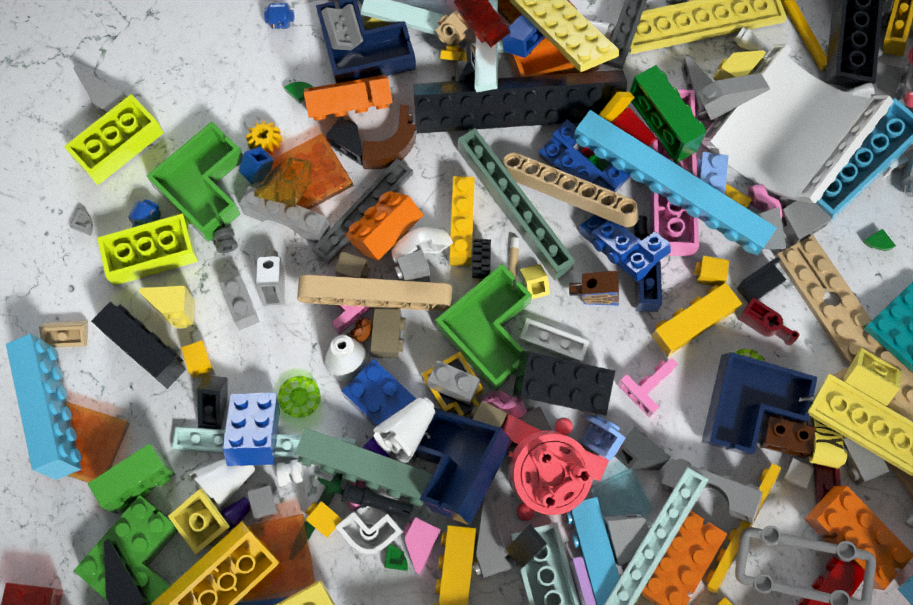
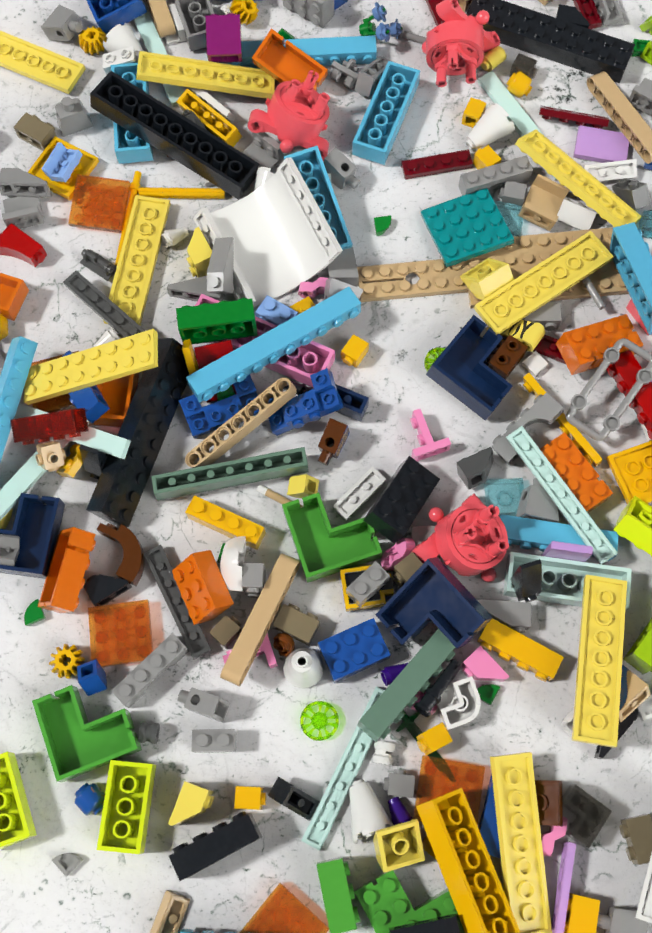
camera: 65 degrees left, 0 degrees up
(251, 429) = (336, 769): brick -> none
(286, 182) = (124, 656): clear yellow slope -> none
(405, 429) = (392, 638): white cone -> none
(481, 258) = (268, 519): black tyre -> none
(602, 437) = (456, 490): light blue bracket -> none
(696, 319) = (388, 380): yellow brick -> none
(758, 316) = (411, 331): dark red piece -> none
(761, 281) = (378, 320): black panel -> none

